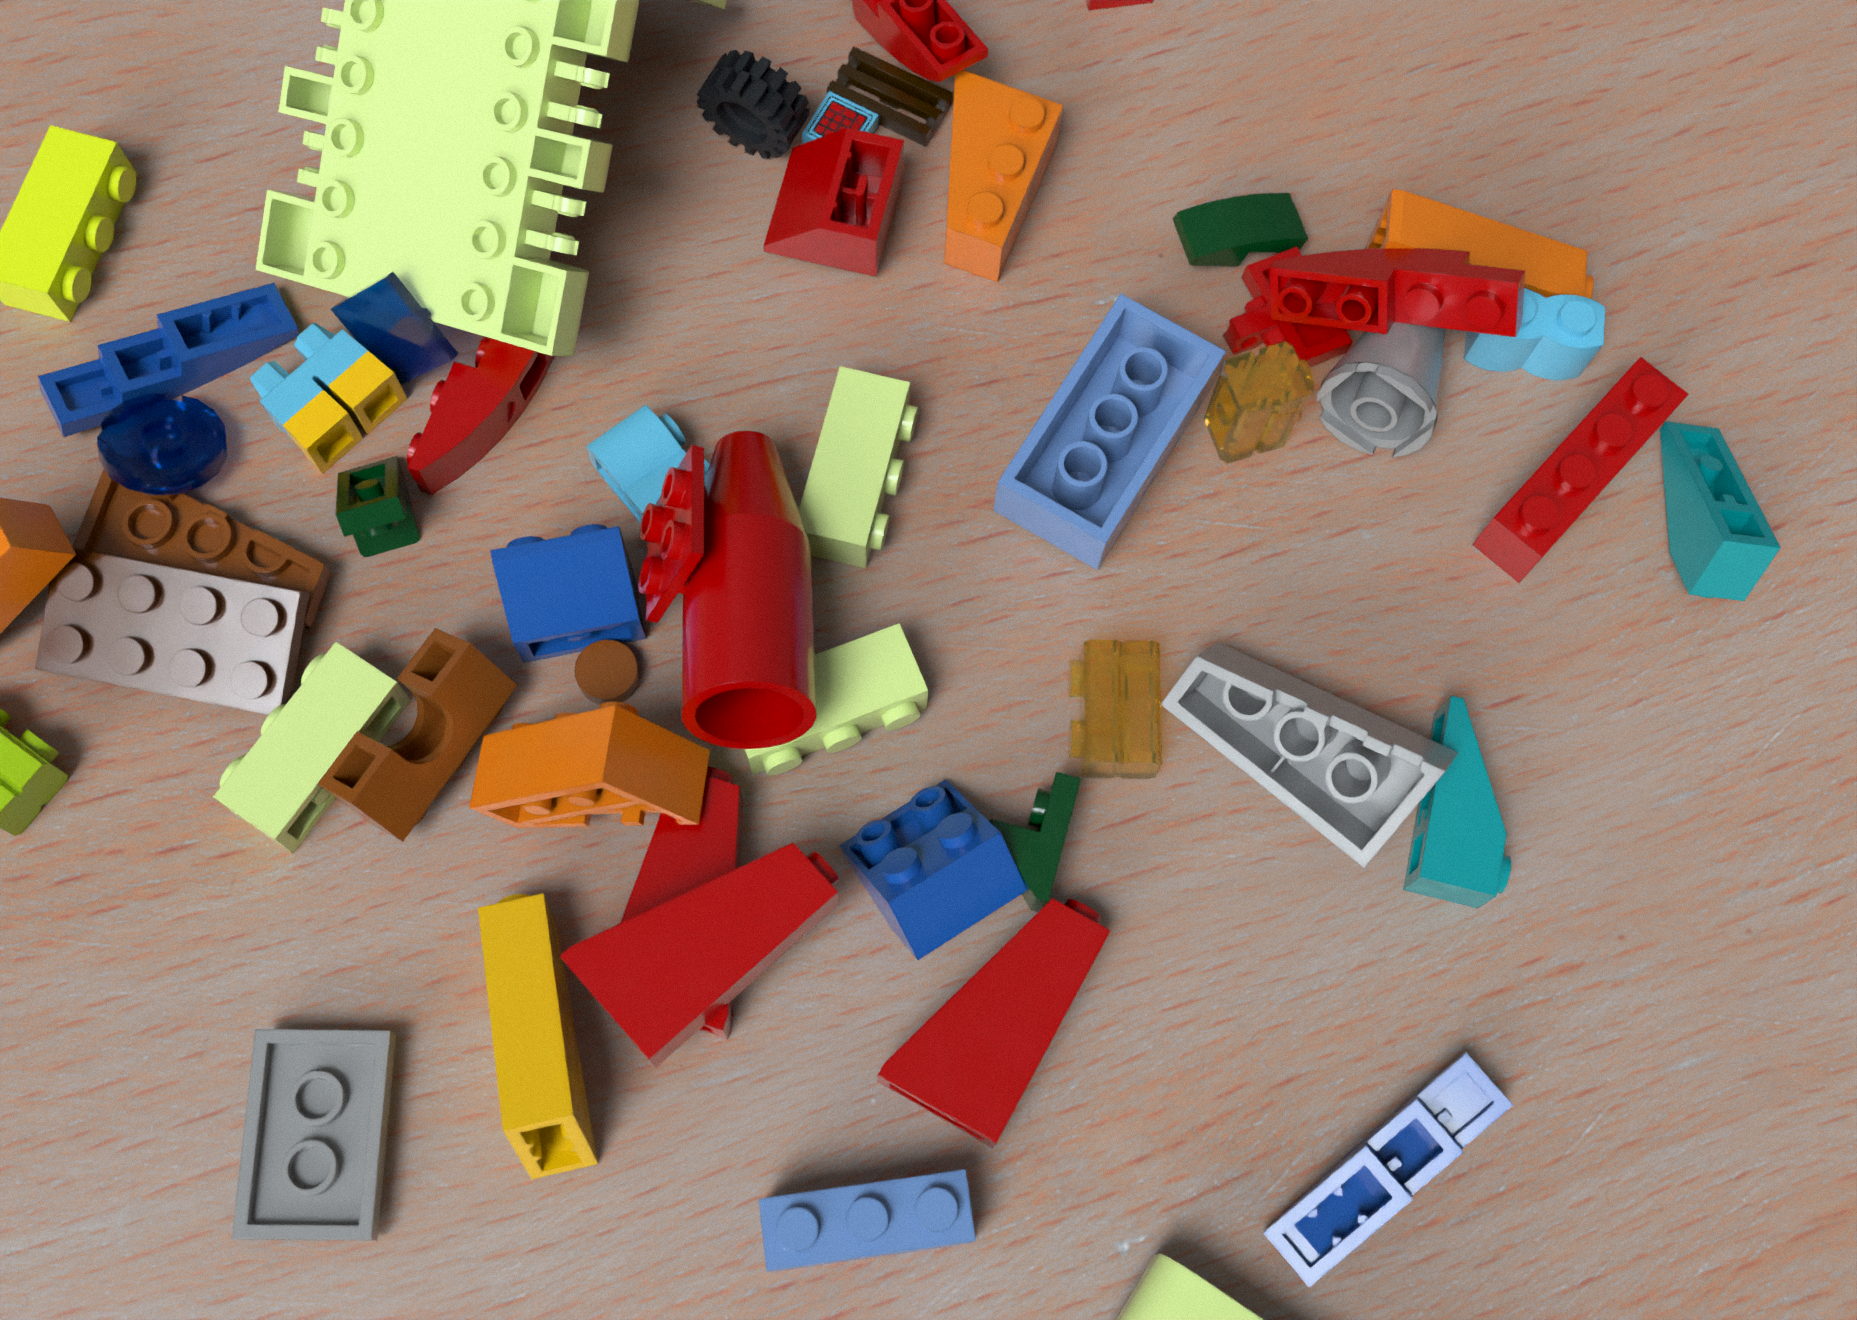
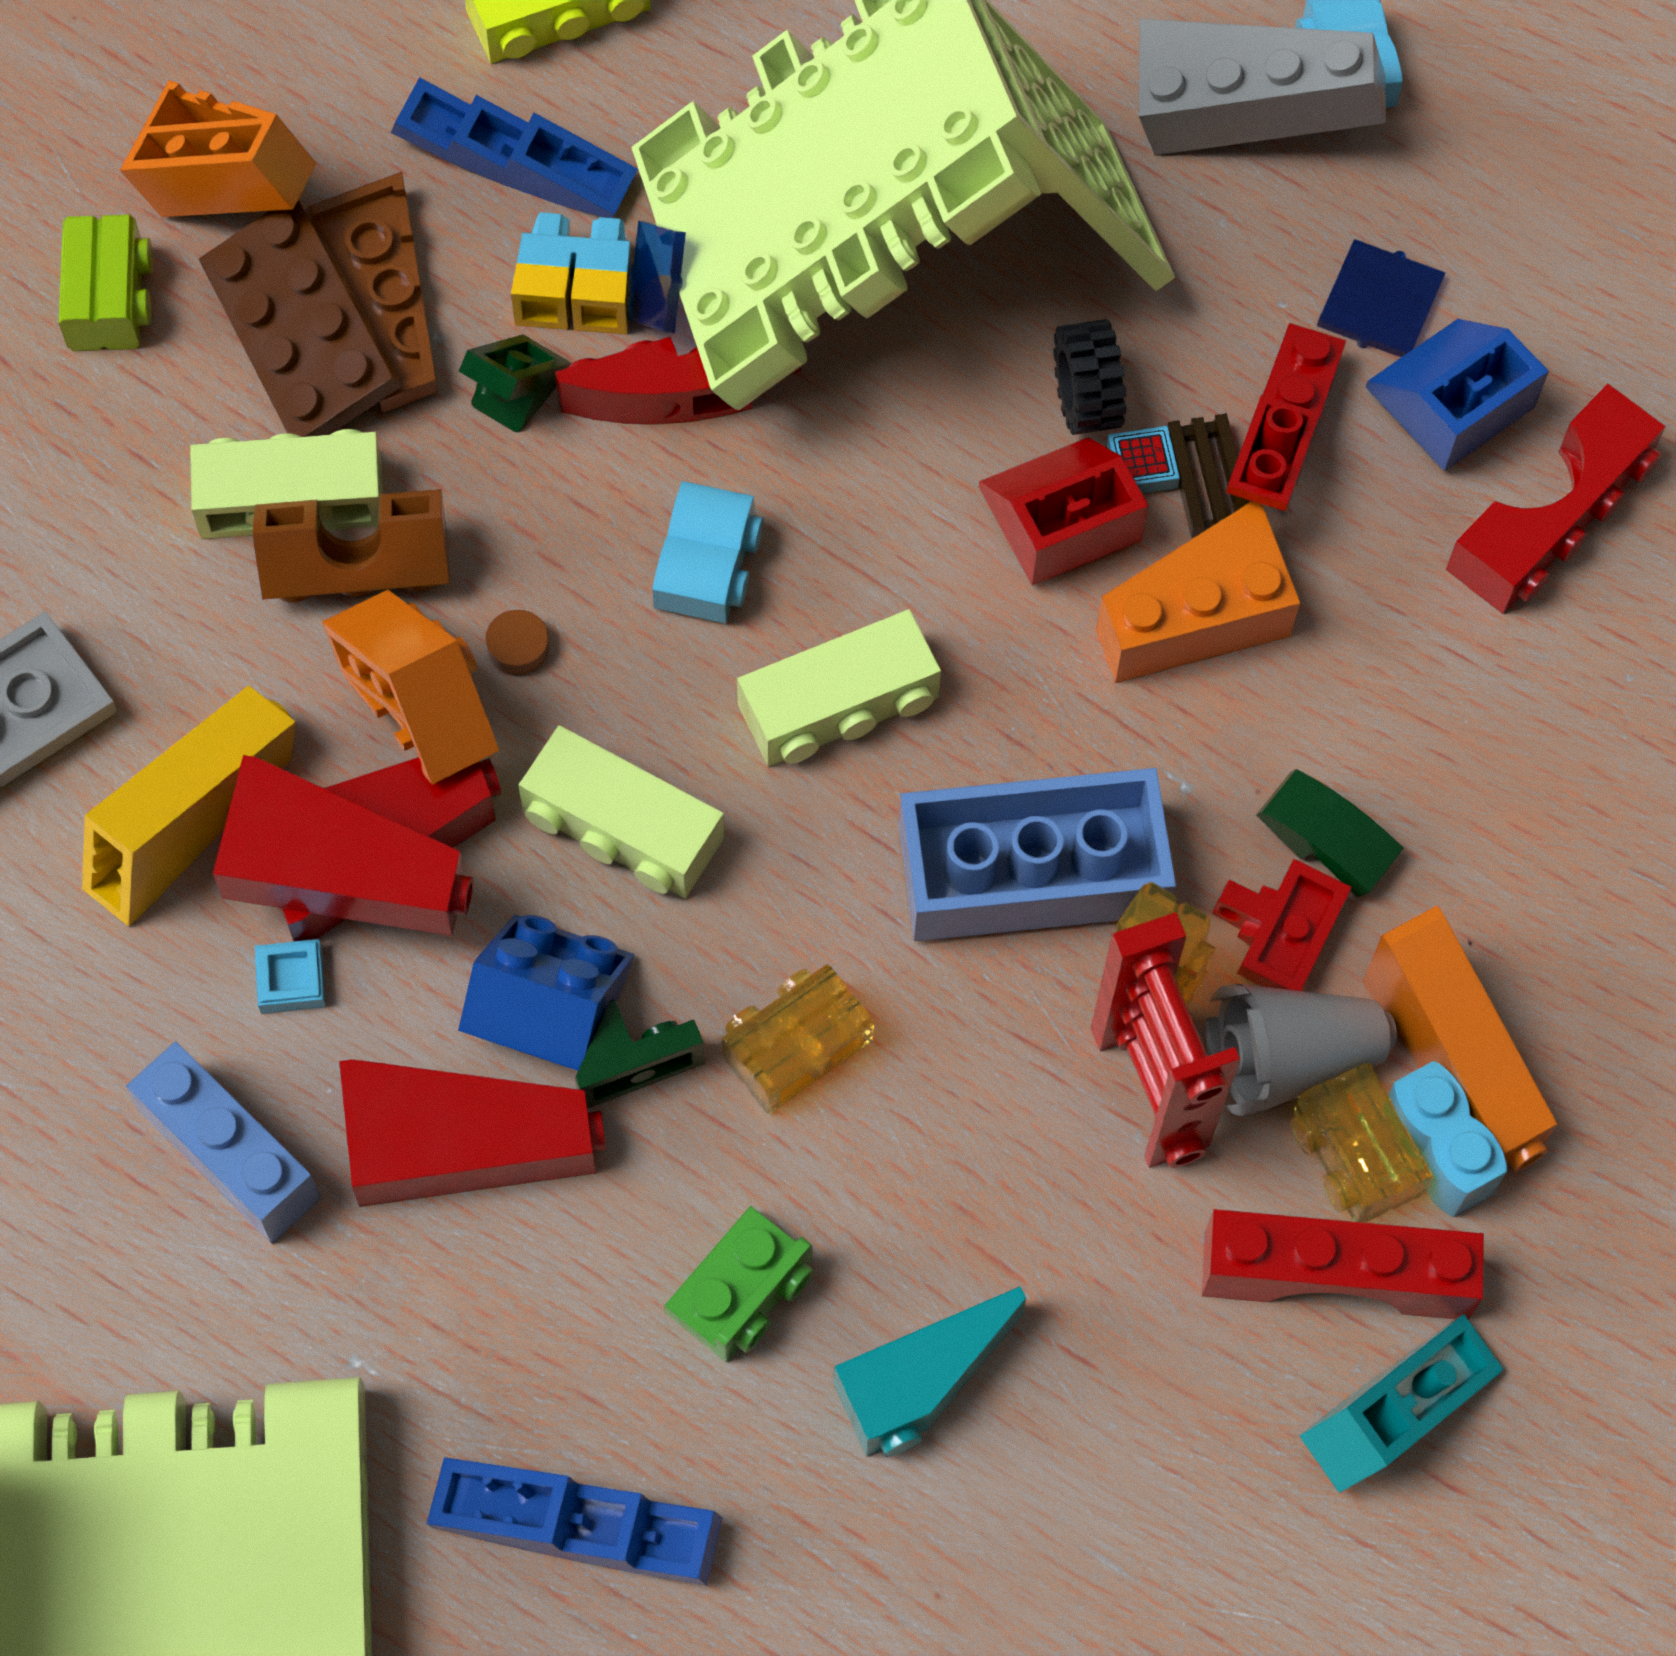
camera: 55 degrees right, 5 degrees down
(162, 444) = (439, 199): clear blue tile -> none
(568, 592) = (549, 560): blue slope -> none
(745, 588) = (654, 662): red piece -> none
(752, 1061) = (290, 976): none -> medium azure tile
(1285, 898) = (740, 1284): none -> bright green bracket
(1310, 749) = (877, 1202): light grey wedge -> none
(1318, 416) = (1147, 1015): none -> red fence
(1400, 285) = (1348, 967): red slope -> none
(1500, 390) = (1360, 1145): none -> clear yellow brick

